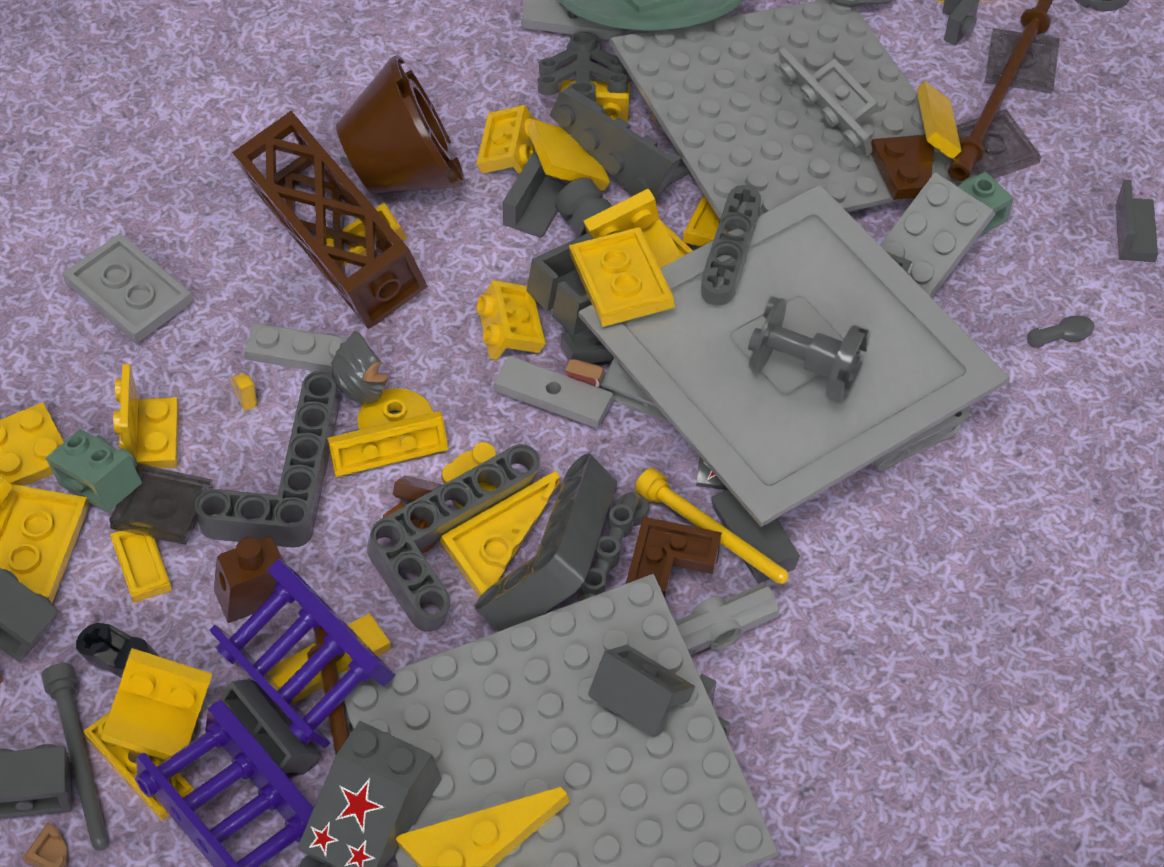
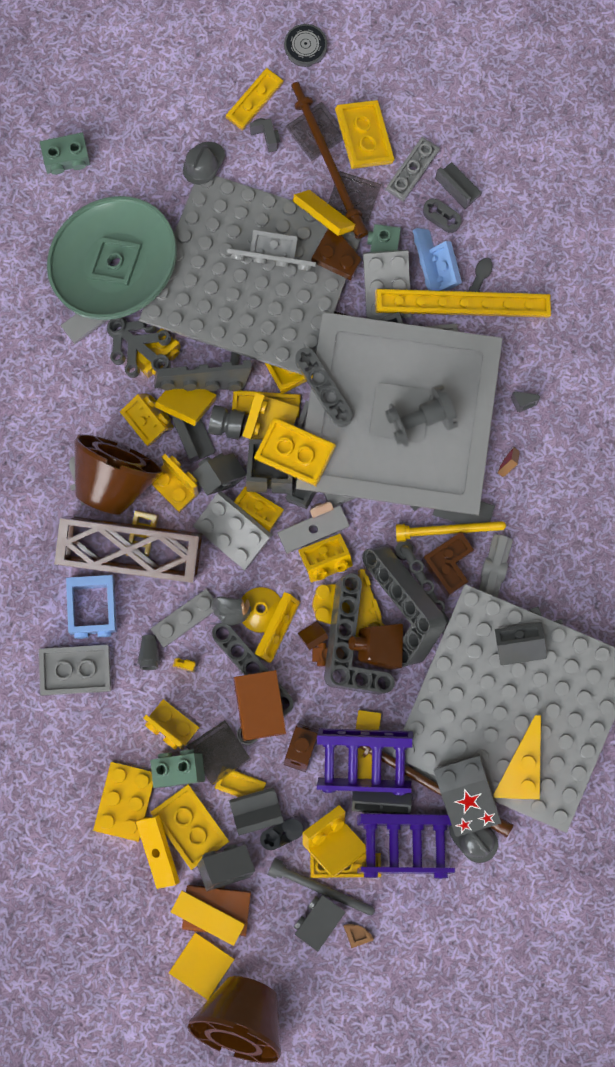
camera: 50 degrees left, 25 degrees up
(120, 595) = (256, 811): none -> dark grey panel
(219, 343) = (148, 653): none -> dark grey cone
(233, 211) = (91, 582): none -> light blue window
(262, 483) = (259, 705): none -> dark orange piece
(456, 218) = (175, 485): none -> yellow bracket
(462, 309) = (232, 530): none -> light grey plate
(474, 553) = (379, 646): none -> reddish brown torso
(512, 237) = (219, 473): none -> dark grey brick
(529, 424) = (325, 558): none -> yellow bracket
(877, 529) = (509, 462): none -> medium nougat tile
(970, 488) = (524, 401): none -> dark grey slope
(1008, 329) = (462, 303): none -> yellow tile
(1012, 277) = (437, 262): none -> light blue bracket
(1074, 96) = (364, 134): none -> yellow plate
(1075, 240) = (438, 219): none -> dark grey beam
(1096, 174) = (405, 178): none -> light grey tile

